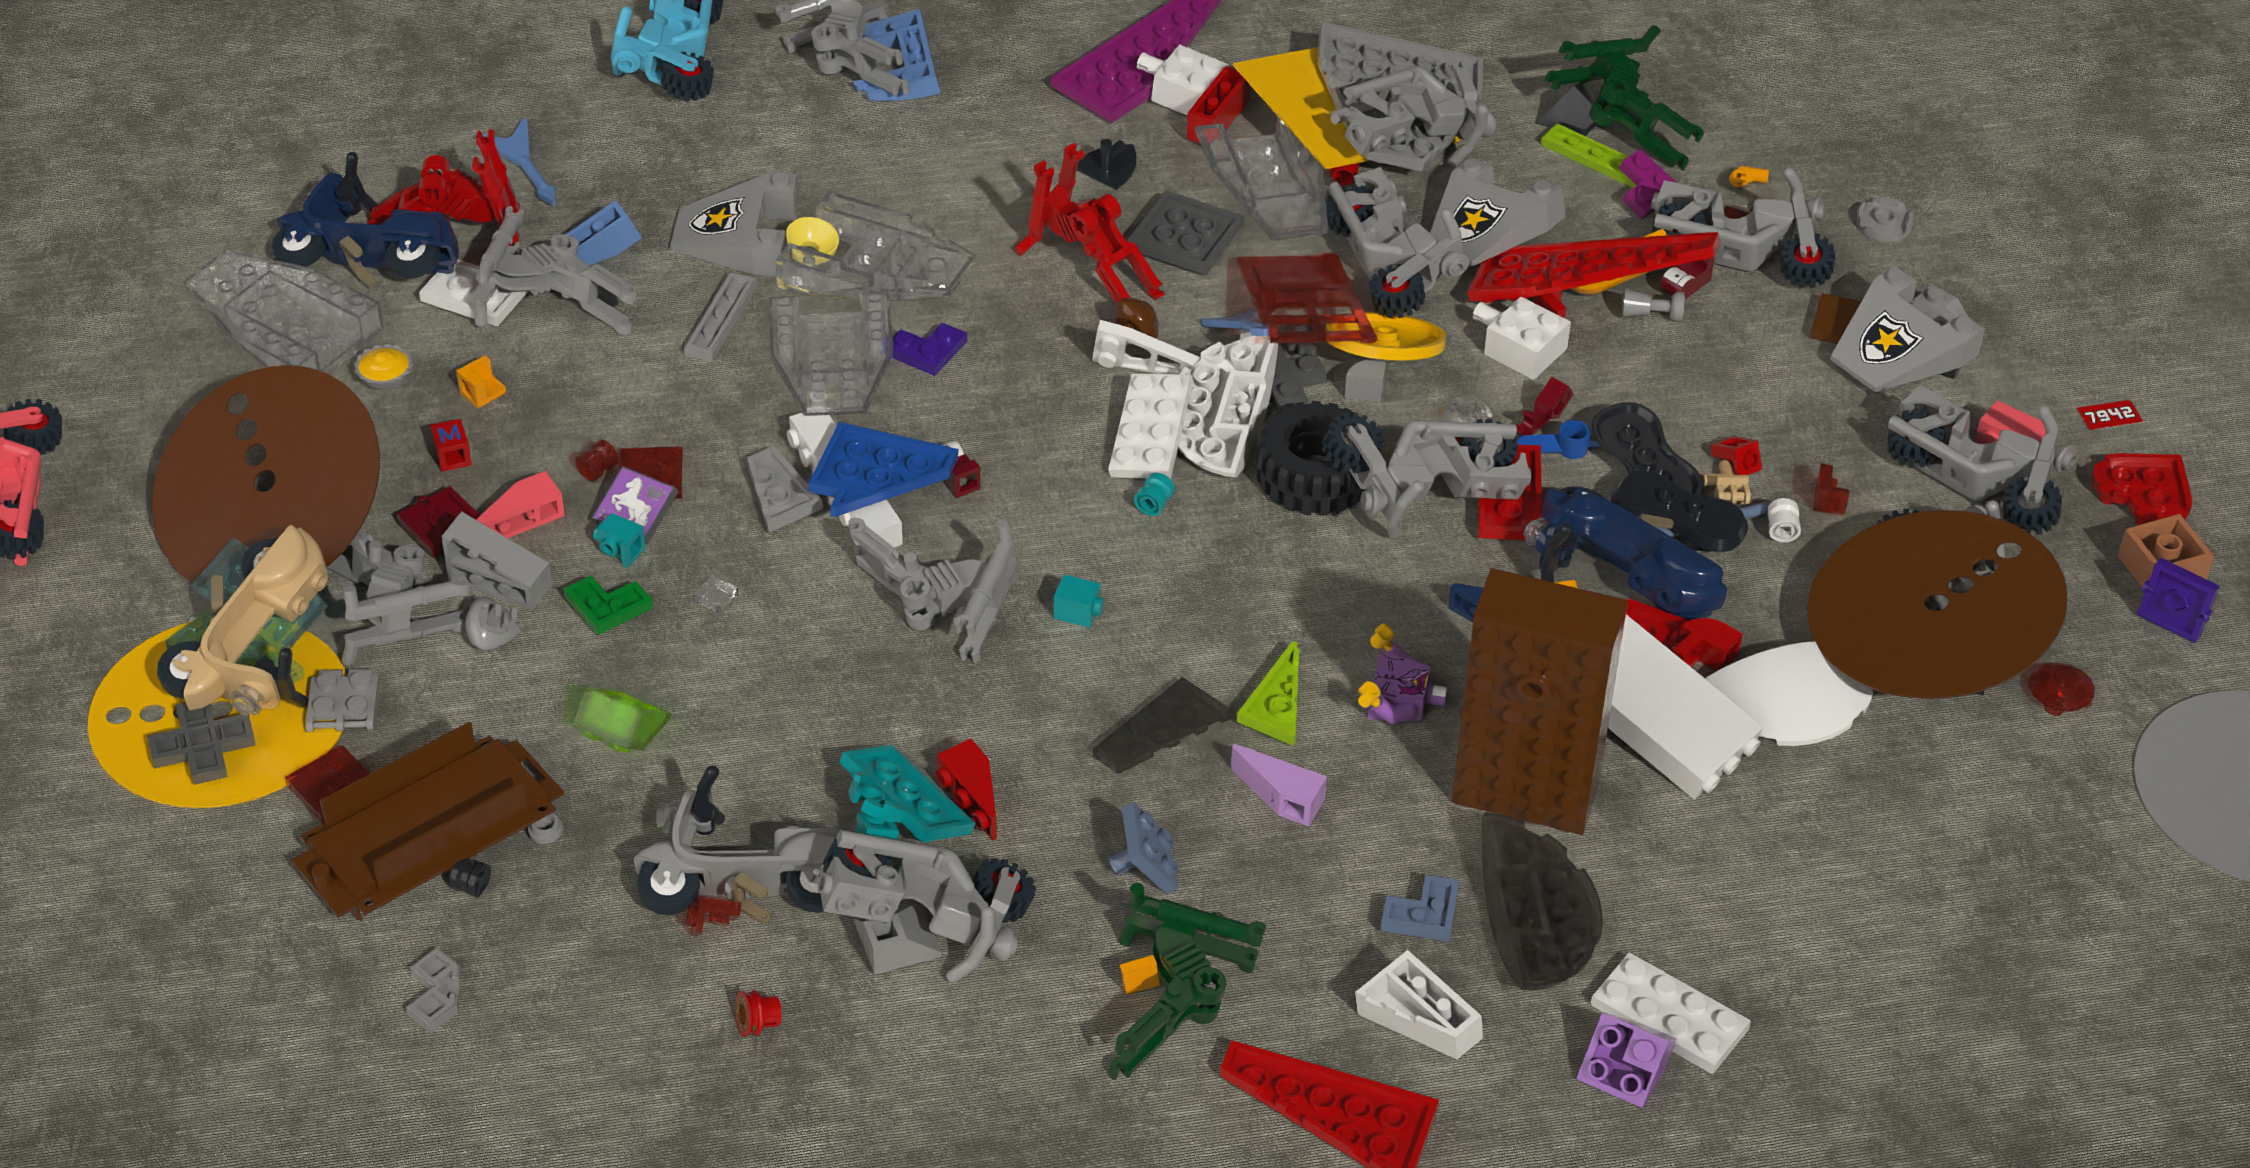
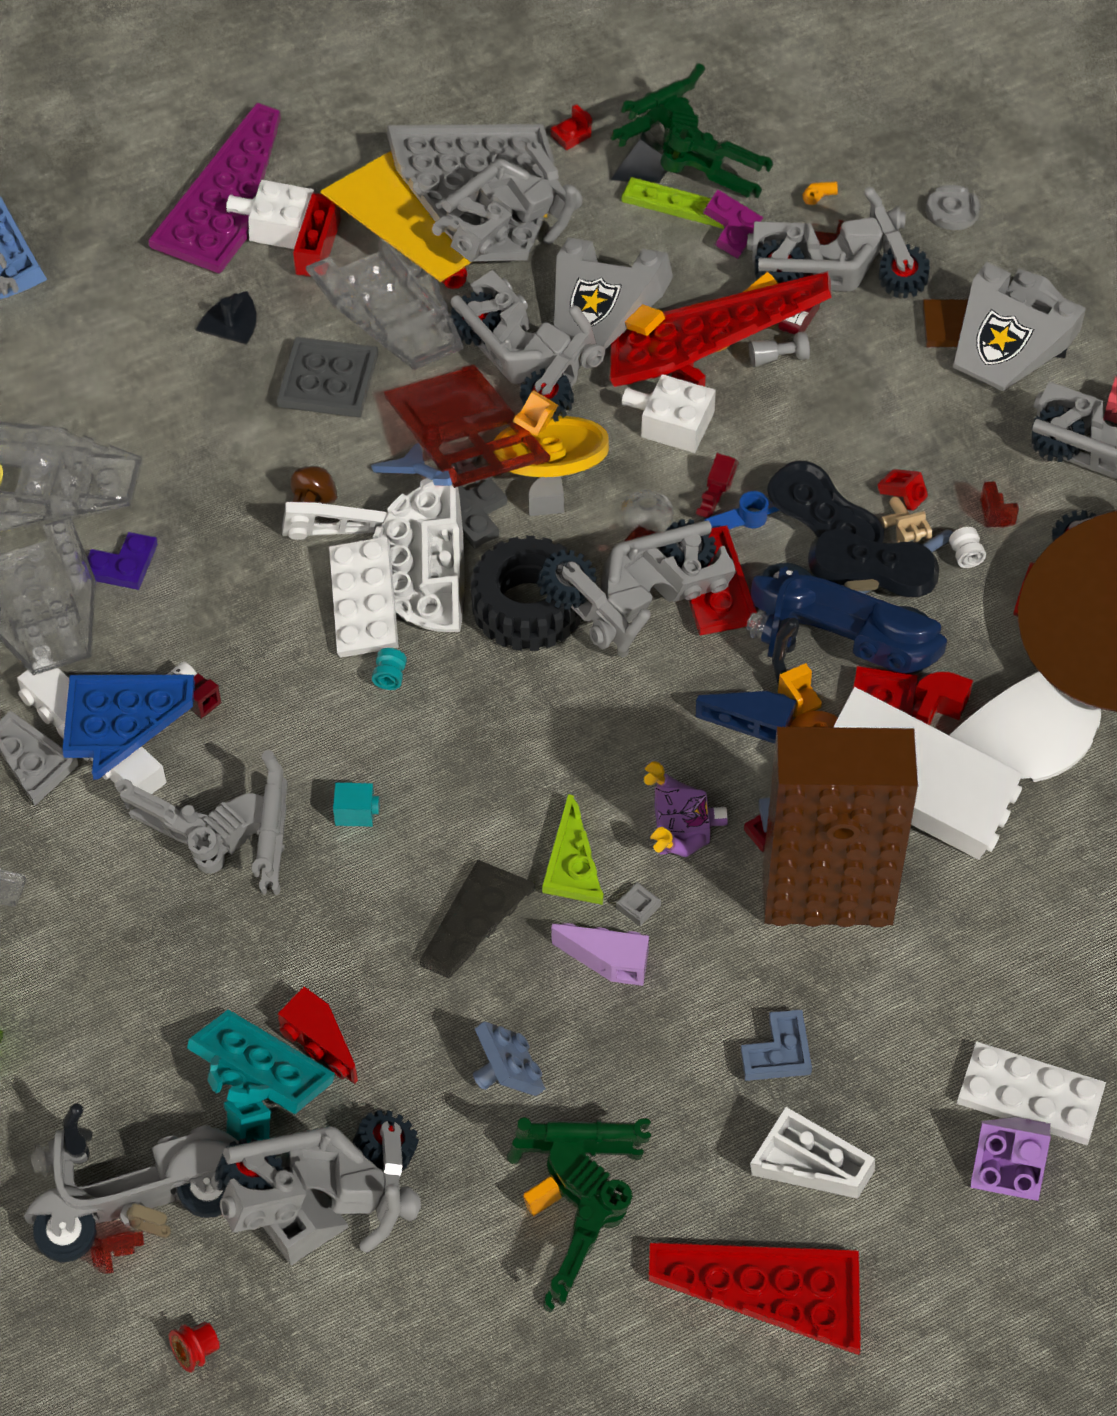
camera: 15 degrees left, 10 degrees up
(1086, 221) = (239, 398): red piece -> none
(1329, 754) = (638, 904): none -> light grey tile
(1379, 301) = (536, 413): none -> light orange panel
(1515, 70) = (573, 130): none -> red bracket
(1521, 246) = (644, 320): none -> light orange tile
(1537, 904) = (881, 1018): clear smoke brick -> none

